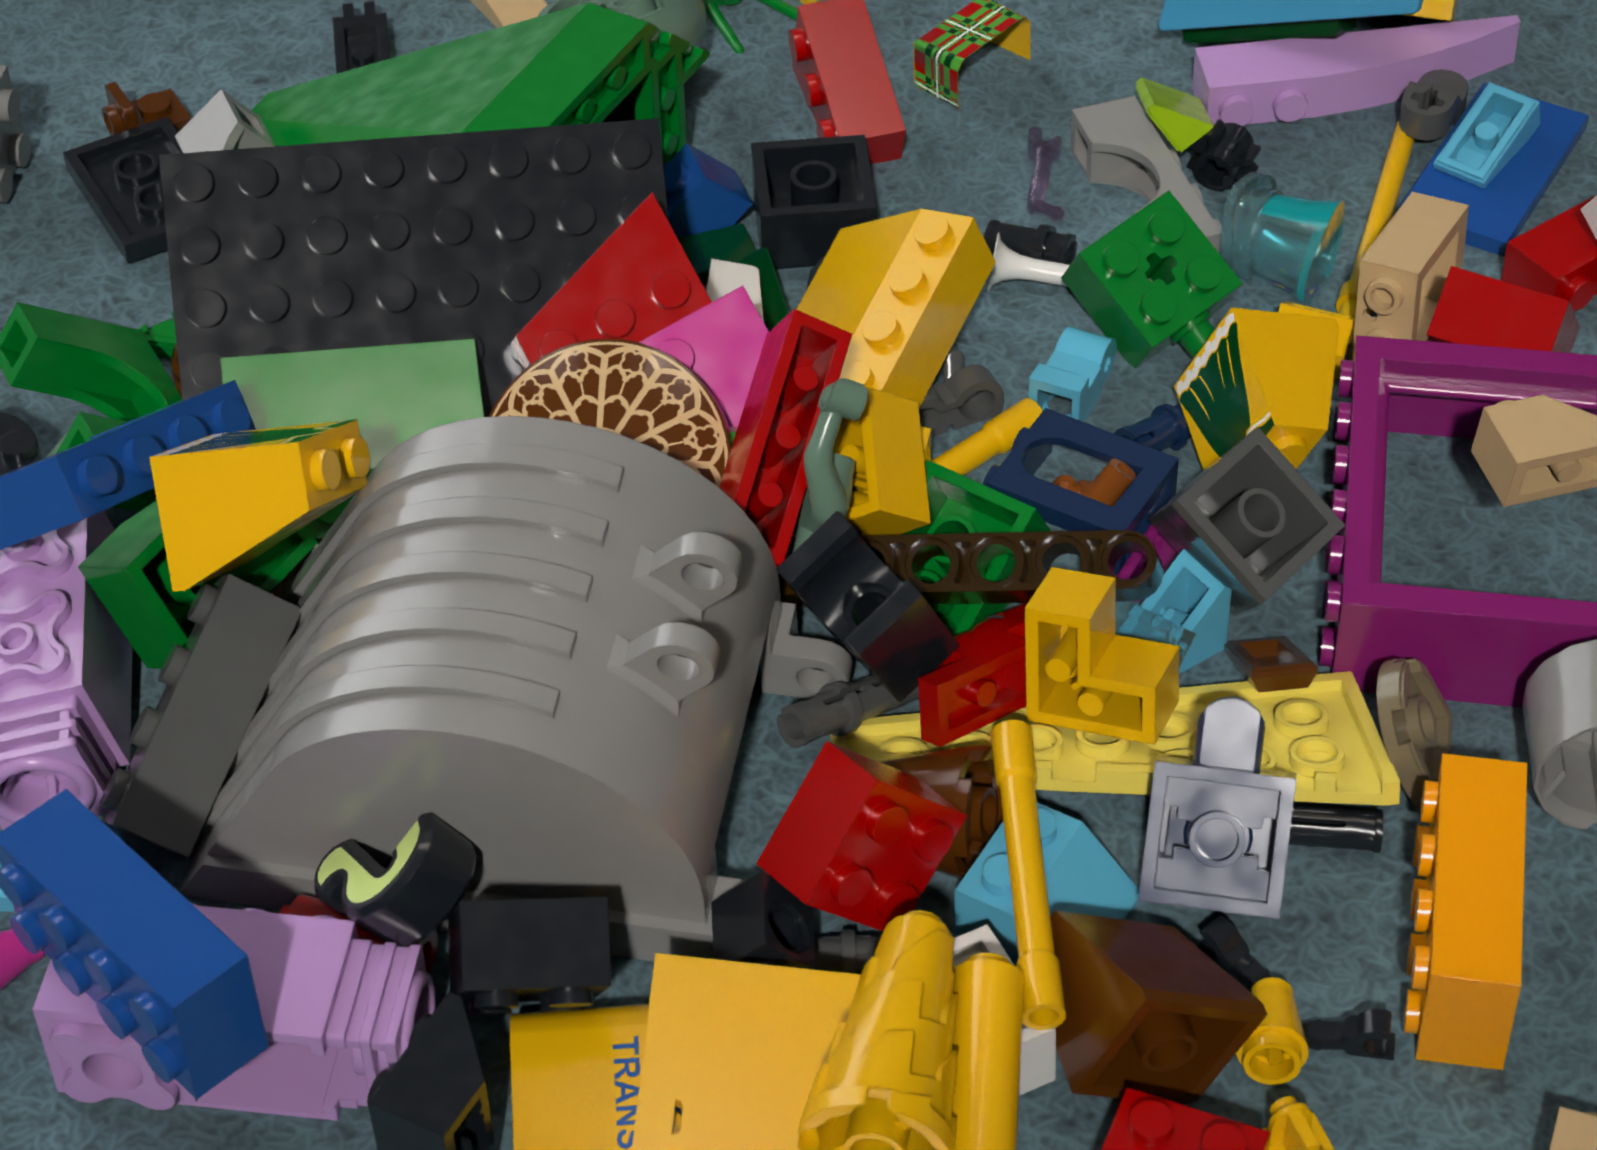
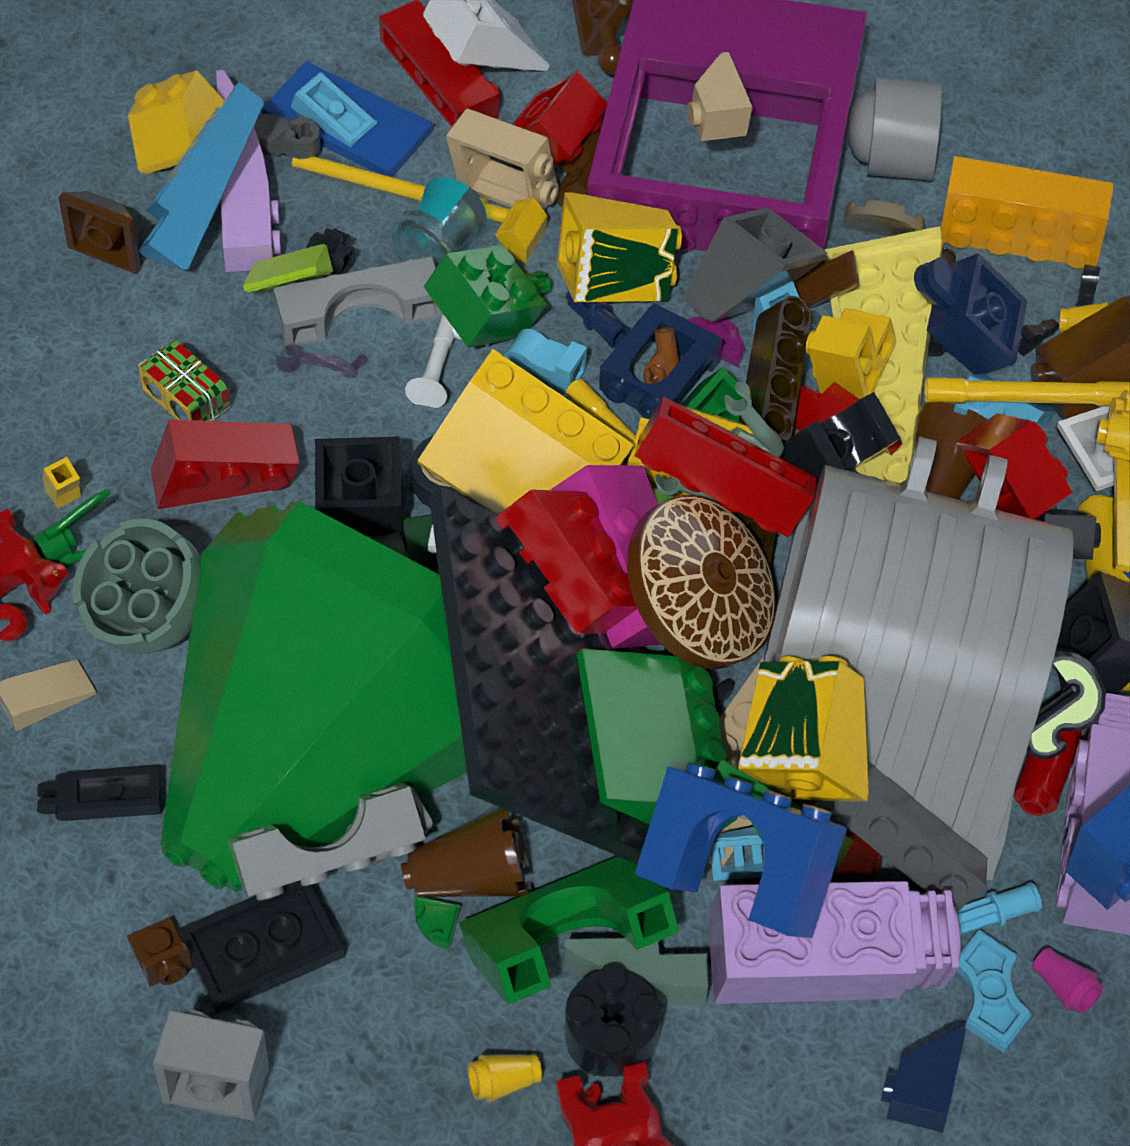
camera: 90 degrees left, 10 degrees up
(1037, 243) = (406, 366): black pin -> none

